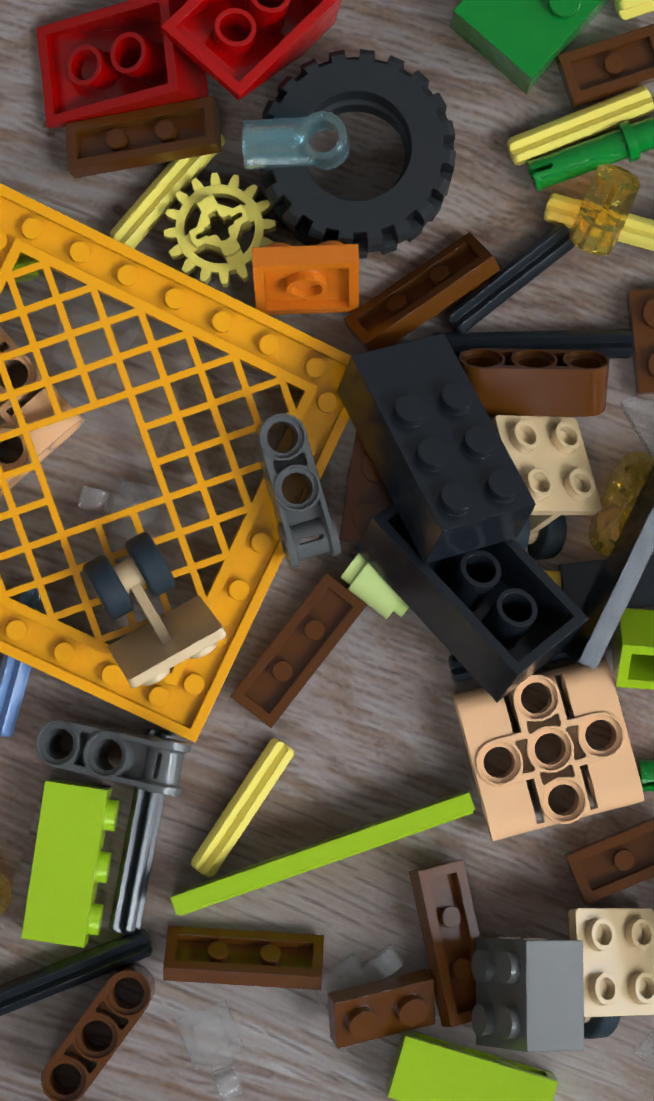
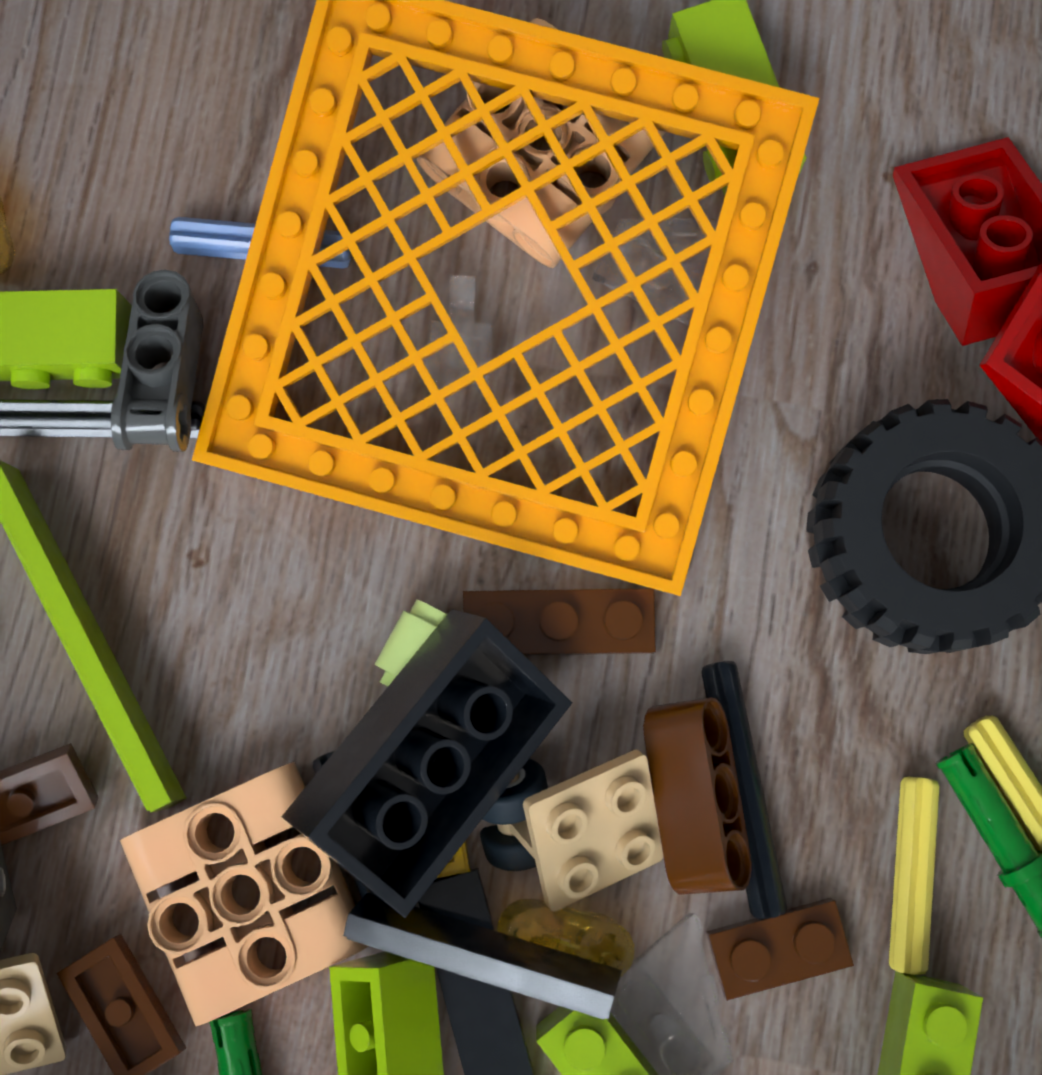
camera: 85 degrees right, 5 degrees down
(143, 137) = (906, 275): reddish brown plate -> none
(158, 198) = (851, 318): light yellow axle -> none
(165, 640) = (300, 396): tan plate -> none
(199, 243) = (825, 405): light yellow gear -> none
(242, 807) = (125, 530): light yellow axle -> none
(288, 142) = (942, 433): clear light blue piece -> none
(298, 650) = (320, 564): reddish brown plate -> none
(306, 278) = (773, 492): orange plate -> none
(311, 514) = (475, 532): dark grey piece -> none
(422, 294) = (781, 642): reddish brown plate -> none
(435, 447) = (588, 685): black brick -> none
(510, 279) = (822, 749): black axle -> none
(604, 209) = (932, 852): clear yellow piece -> none

